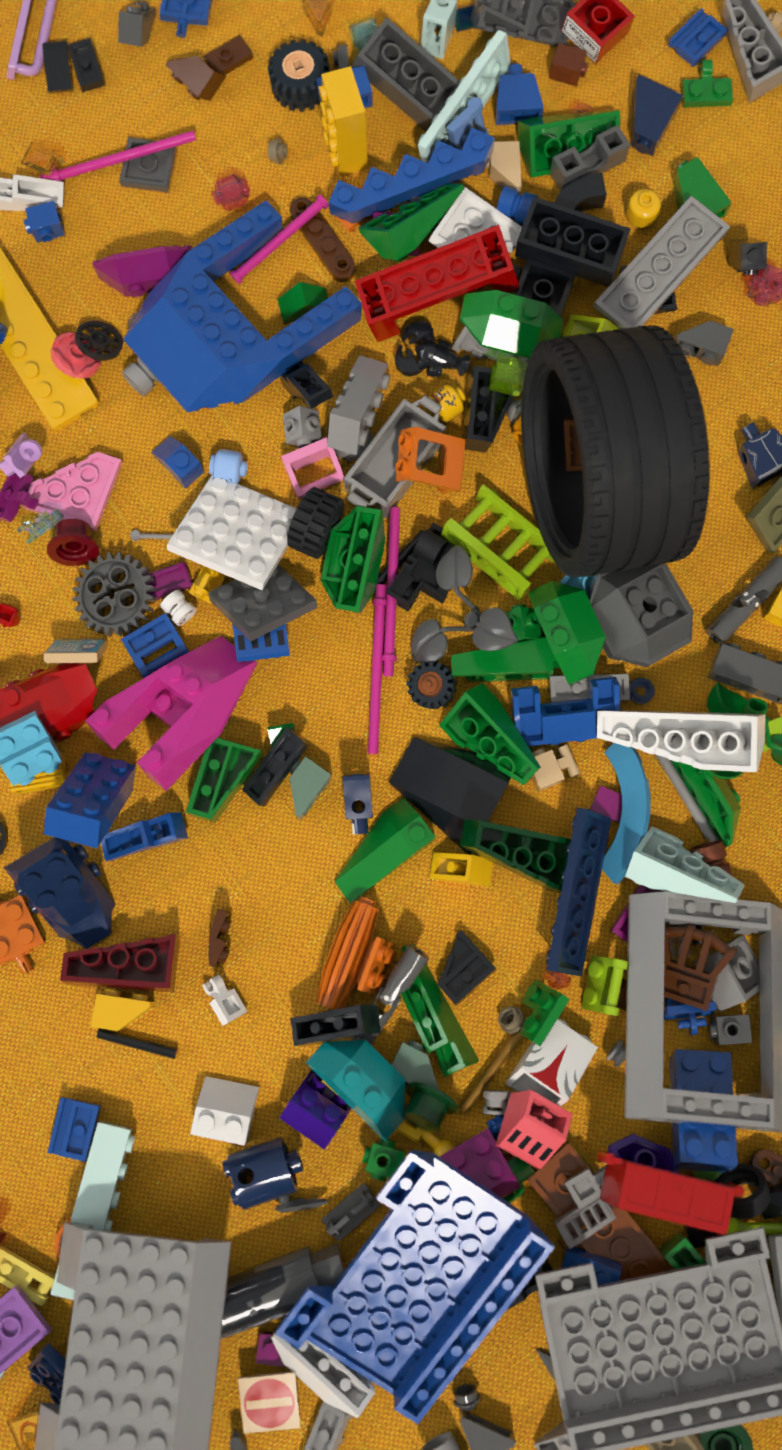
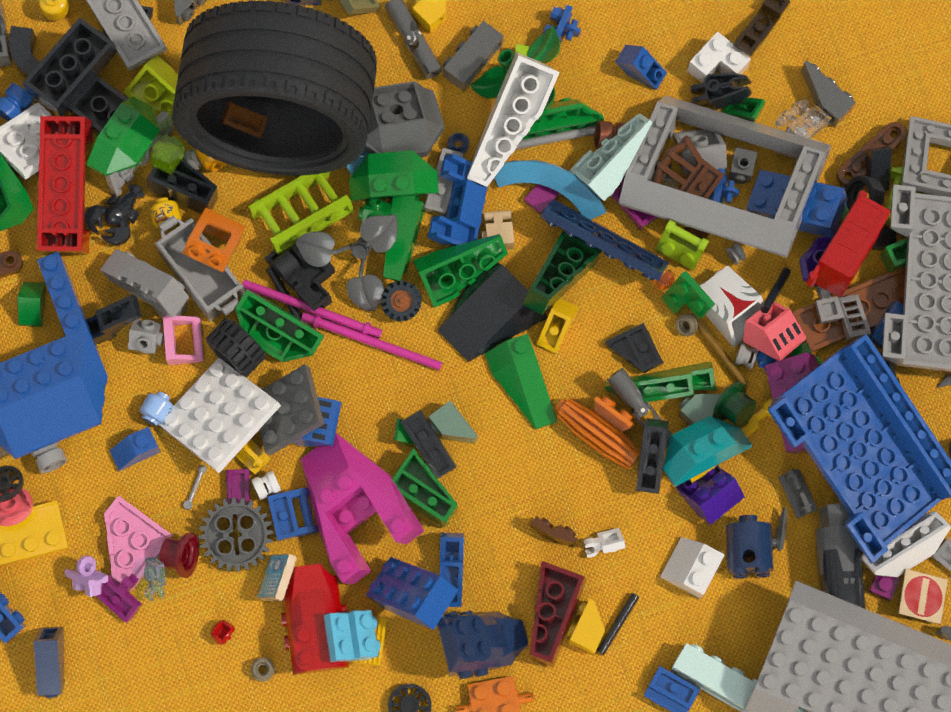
camera: 80 degrees left, 5 degrees down
(358, 788) = (469, 383): dark blue torso -> none
(383, 1148) = (770, 448): green brick -> none
(586, 1114) = (767, 304): none -> black bar

